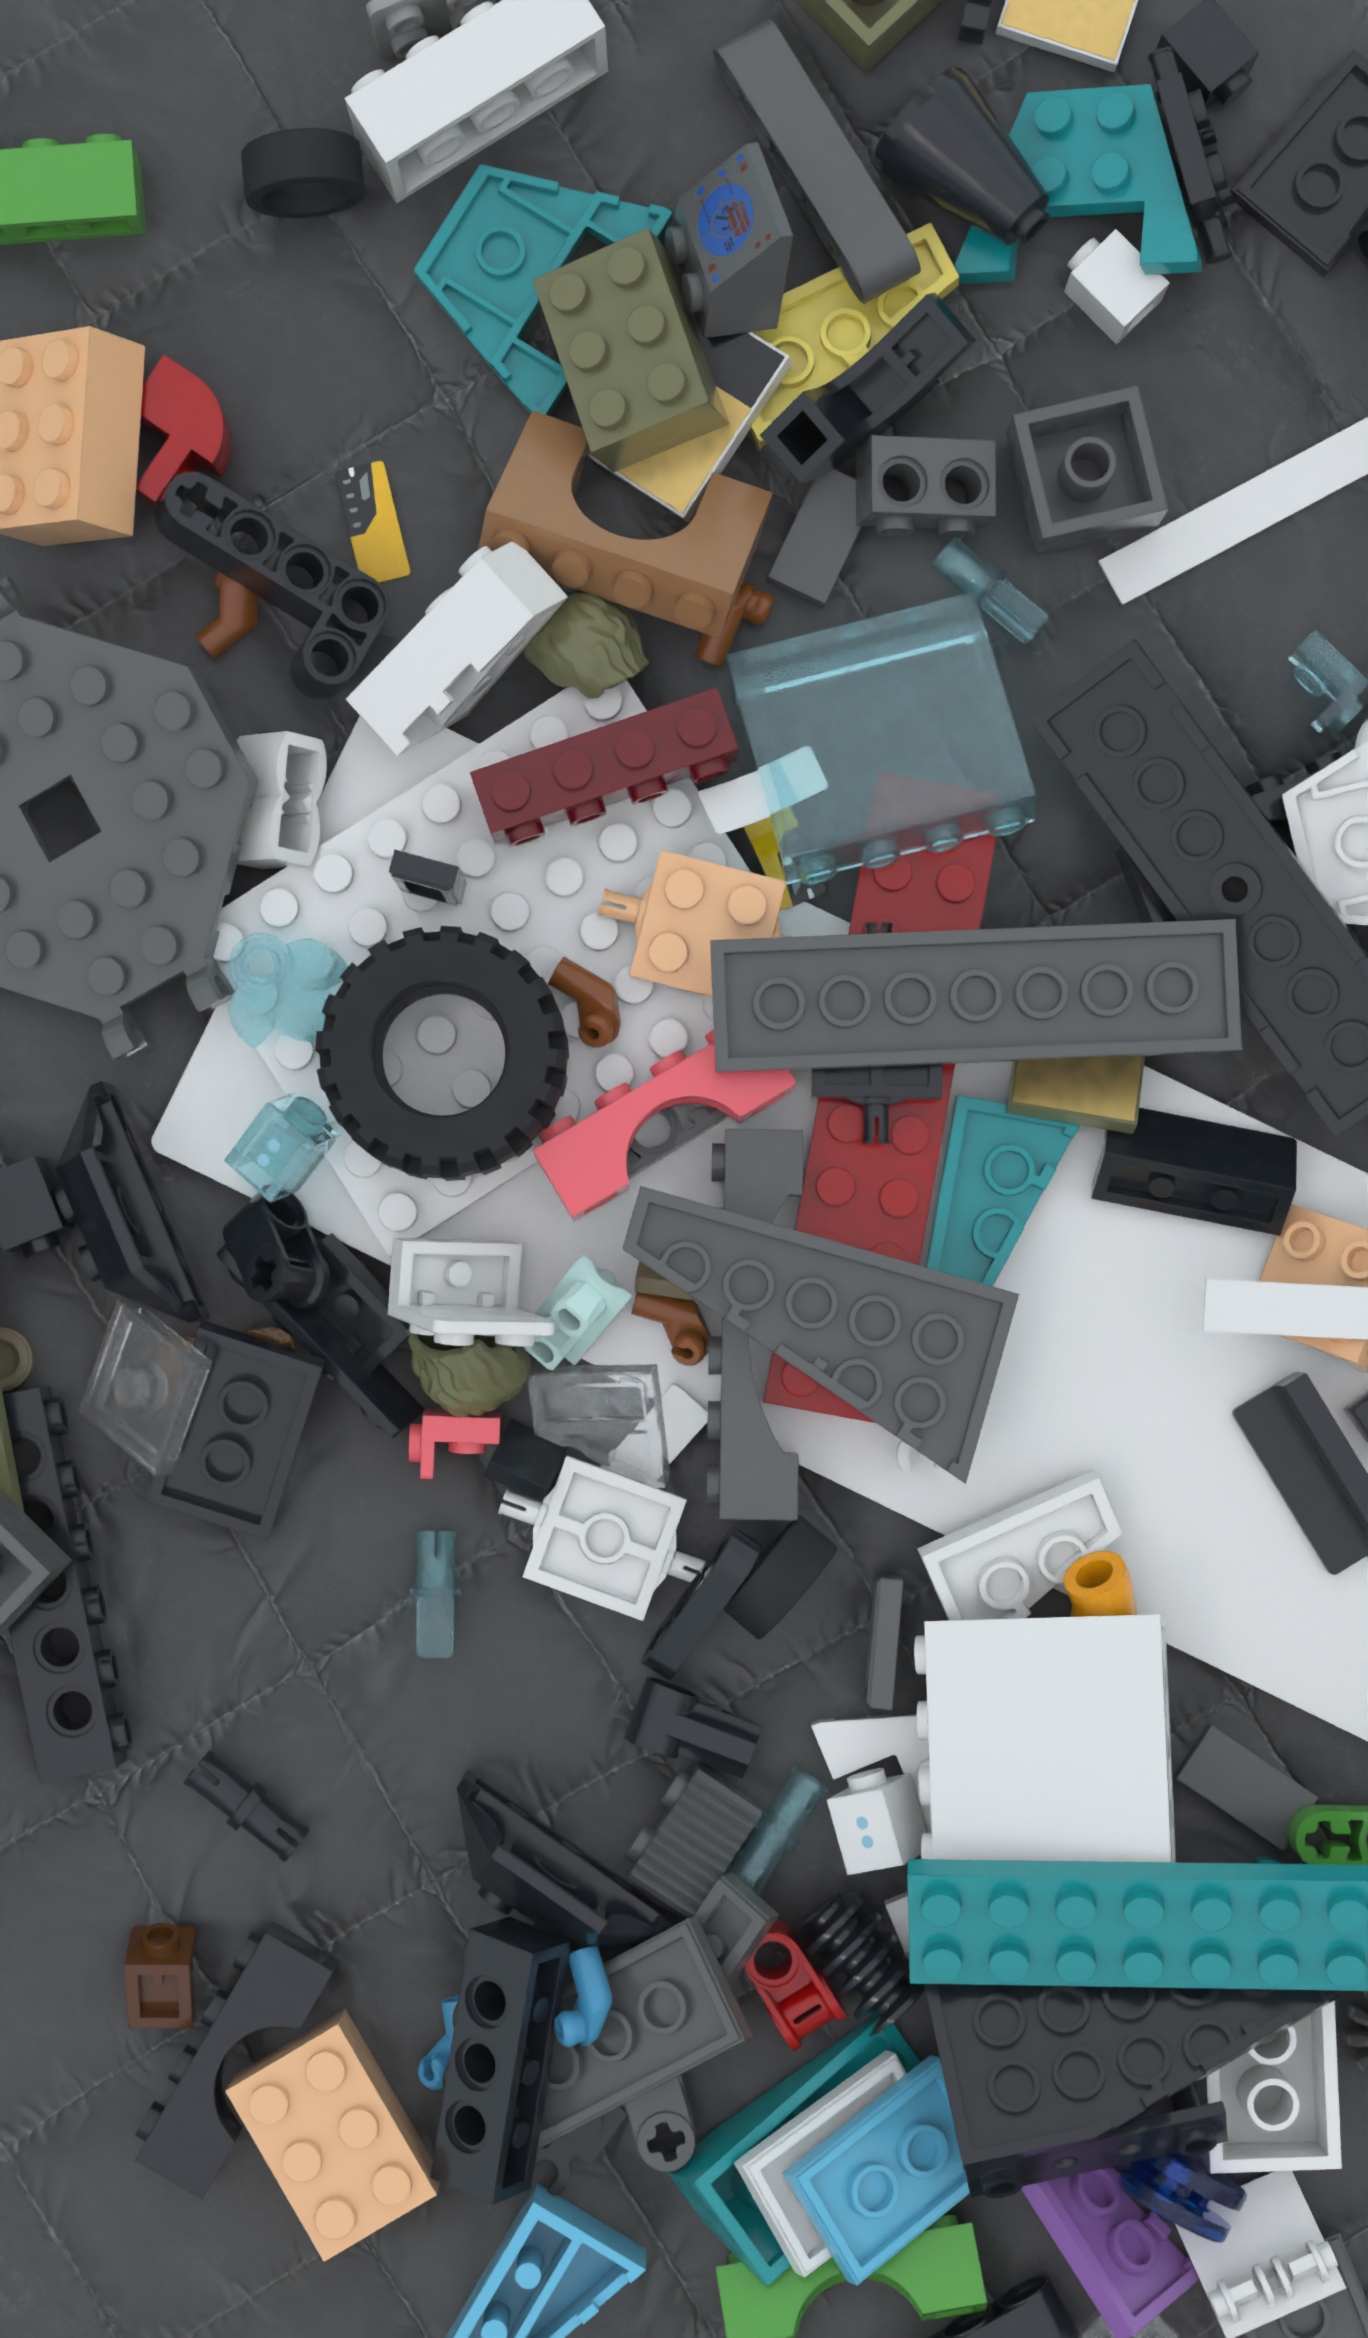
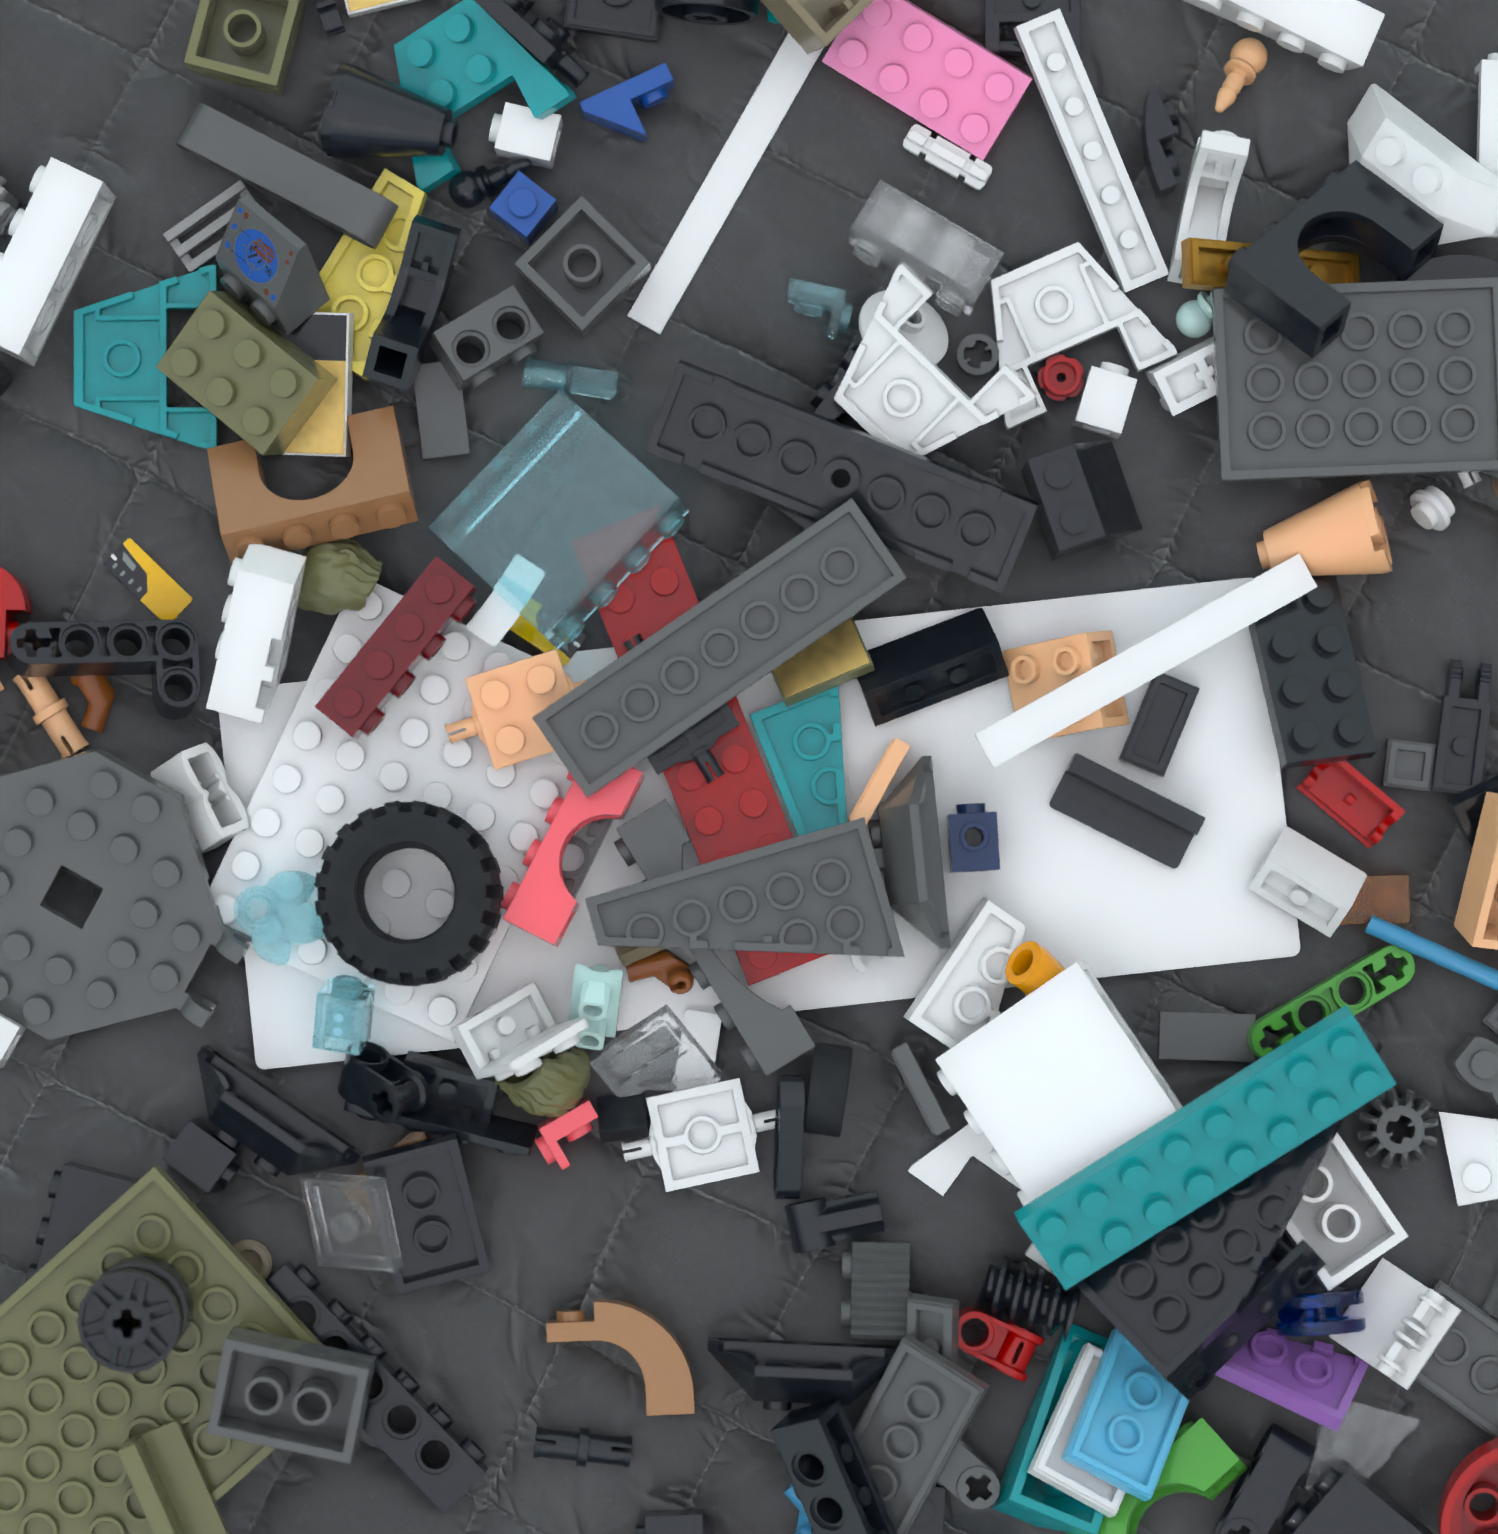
camera: 30 degrees left, 0 degrees up
(170, 600) = (52, 714): none -> light nougat pin
(393, 1729) = (654, 1347): none -> medium nougat arch
(428, 878) = (330, 789): black tile -> none
(435, 1594) = (617, 1237): clear light blue axle -> none
(592, 2003) = (876, 1427): dark azure arm -> none
(595, 1002) = (483, 799): dark orange arm -> none
(679, 150) = (196, 218): none -> light grey tile
(749, 605) = (422, 484): dark orange arm -> none
(778, 1830) = (928, 1249): clear light blue pin -> none
(877, 1821) = (985, 1203): white brick -> none
(1012, 307) = (470, 187): none -> black bar
(1044, 1369) = (912, 854): none -> dark grey wedge
(1060, 363) = (524, 208): none -> blue brick
(1060, 1262) = (879, 780): none -> light nougat tile
(1101, 1406) = (973, 858): none -> dark blue brick
(1236, 314) = (616, 105): none -> blue slope

